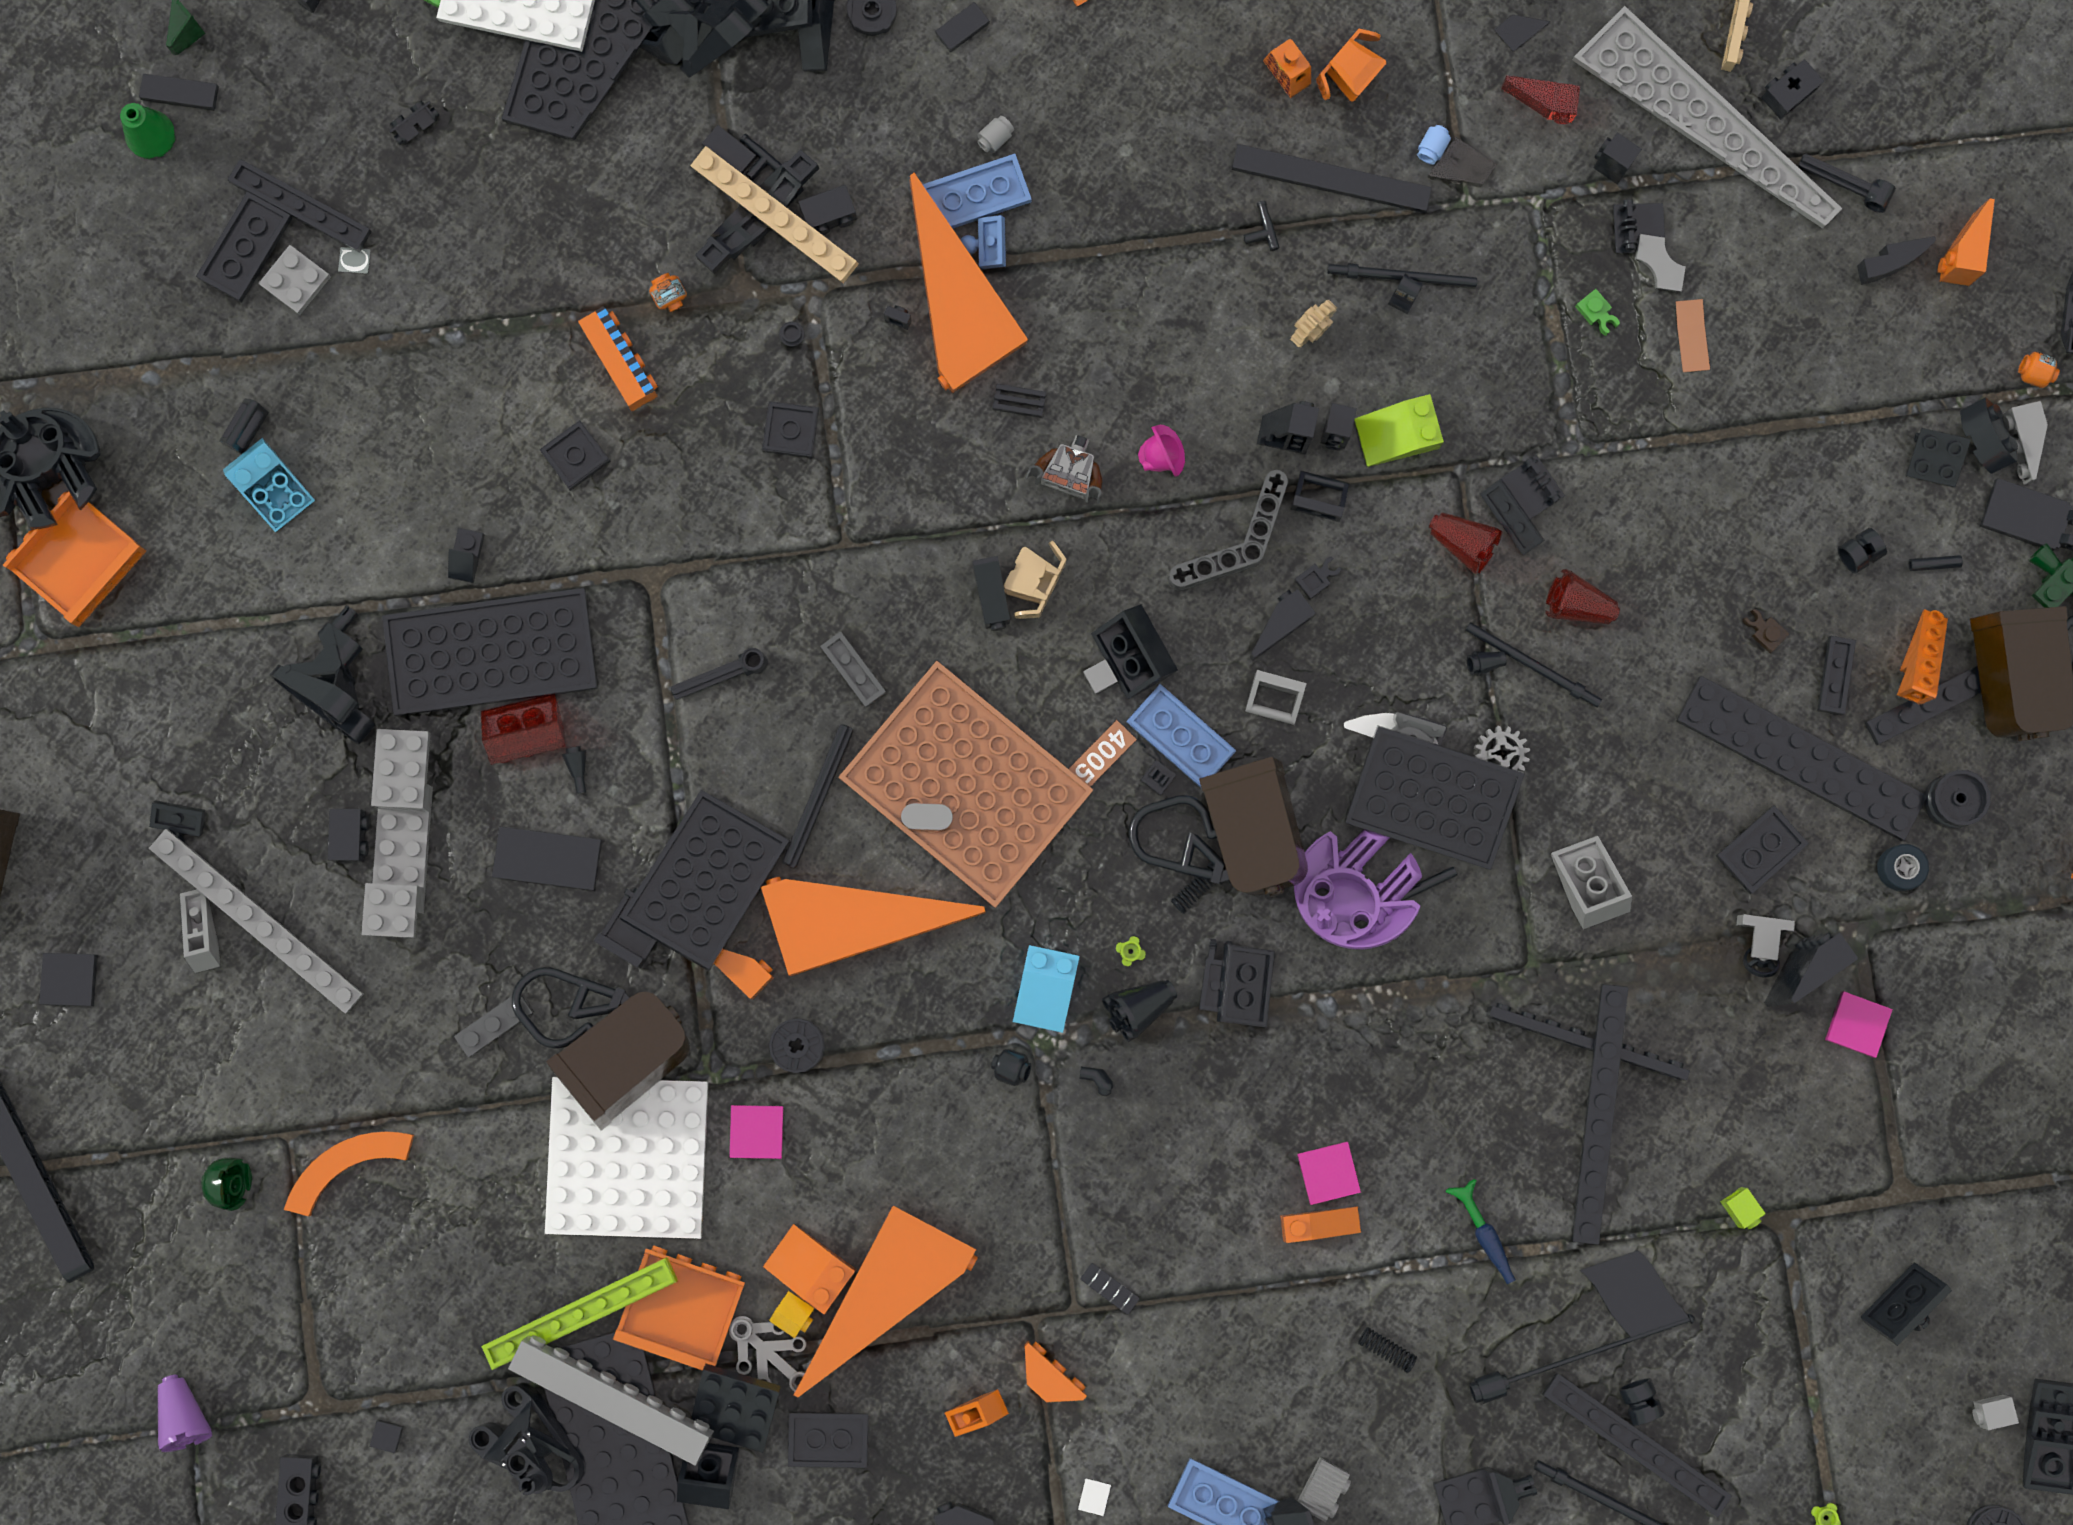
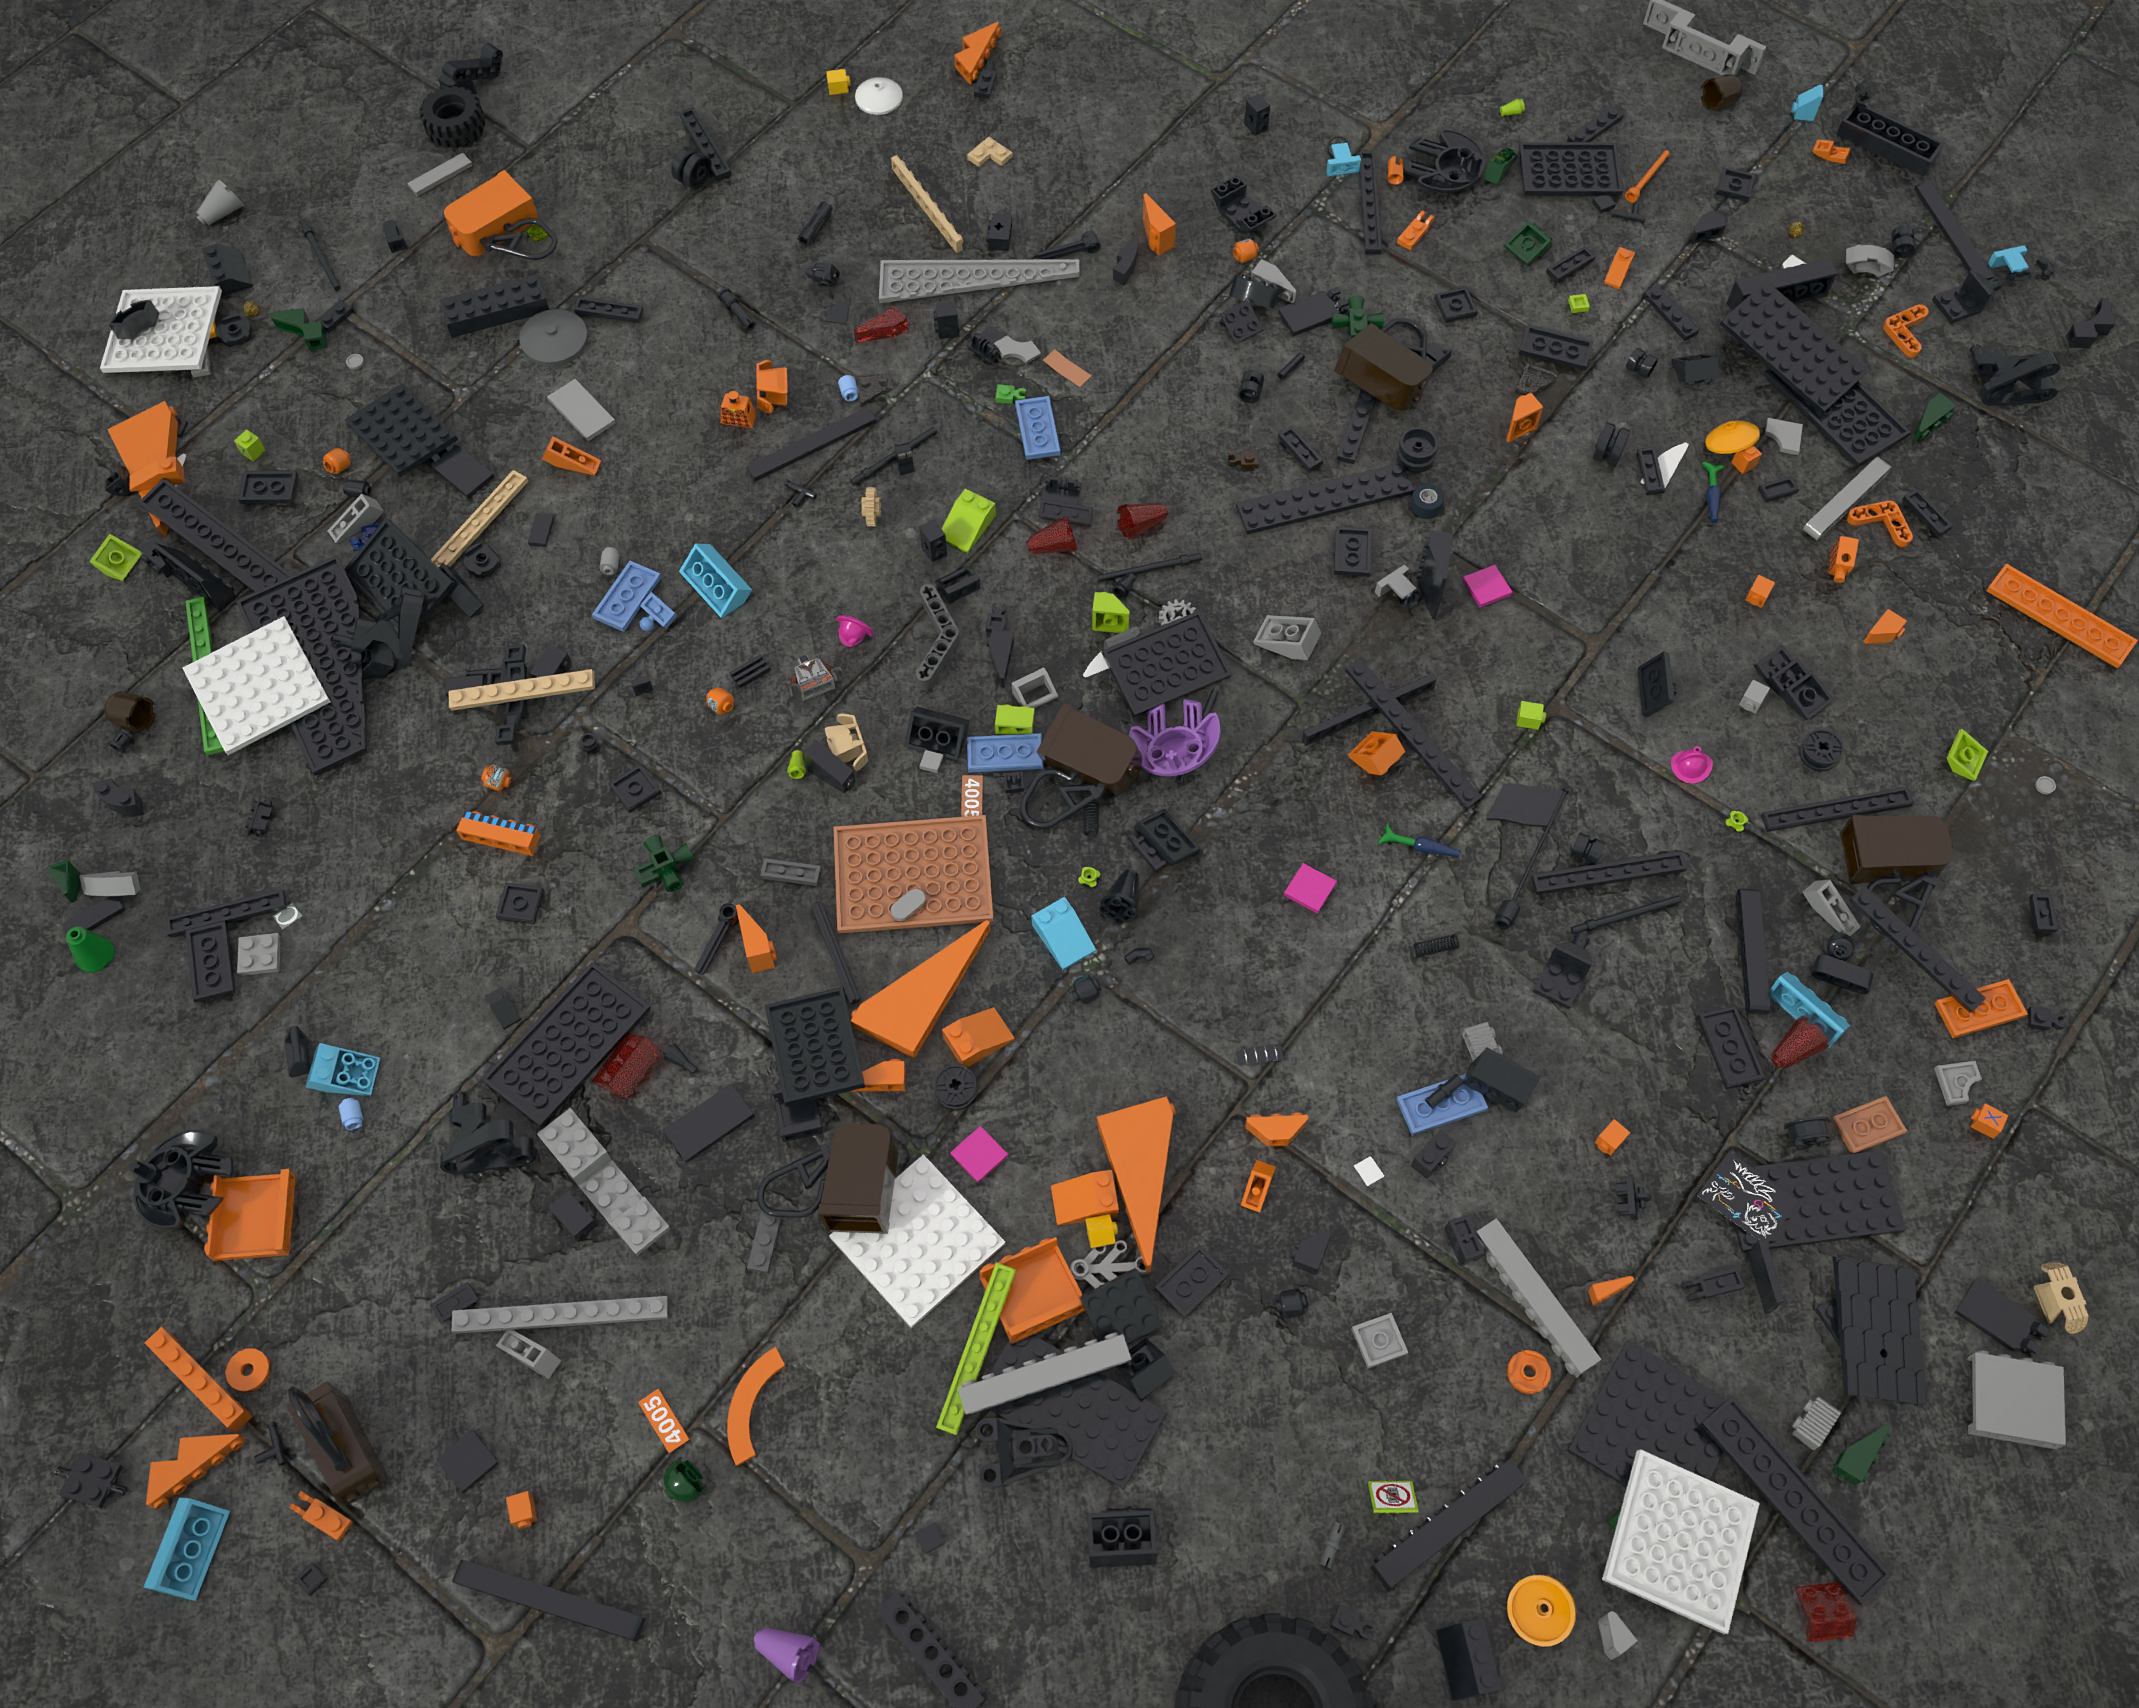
camera: 40 degrees left, 20 degrees down
(73, 1071) = (521, 1510): none -> orange brick
(219, 72) = (110, 884): none -> light grey slope
(240, 537) = (351, 1113): none -> light blue brick
(261, 1105) = (663, 1420): none -> orange sticker
(740, 545) = (662, 864): none -> dark green brick
(745, 723) = (758, 949): none -> orange slope
(867, 1014) = (977, 1036): none -> orange slope
(956, 410) = (720, 701): none -> orange head
(963, 557) = (796, 766): none -> lime cone
(966, 314) = (677, 651): orange slope -> none
(1080, 258) = (714, 579): none -> medium azure slope
(1223, 711) = (1014, 720): none -> lime brick
(1236, 1500) = (1444, 1091): none -> black pin
(1289, 427) = (909, 559): black wedge -> none
(1320, 1224) = (1332, 918): orange slope -> none
(1432, 684) = (1109, 614): none -> lime slope
(1545, 1096) = (1377, 752): none -> orange slope
(1584, 384) = (1037, 427): none -> medium blue plate
(1847, 1417) = (1691, 765): none -> dark pink helmet
(1924, 659) = (1334, 406): orange slope -> none

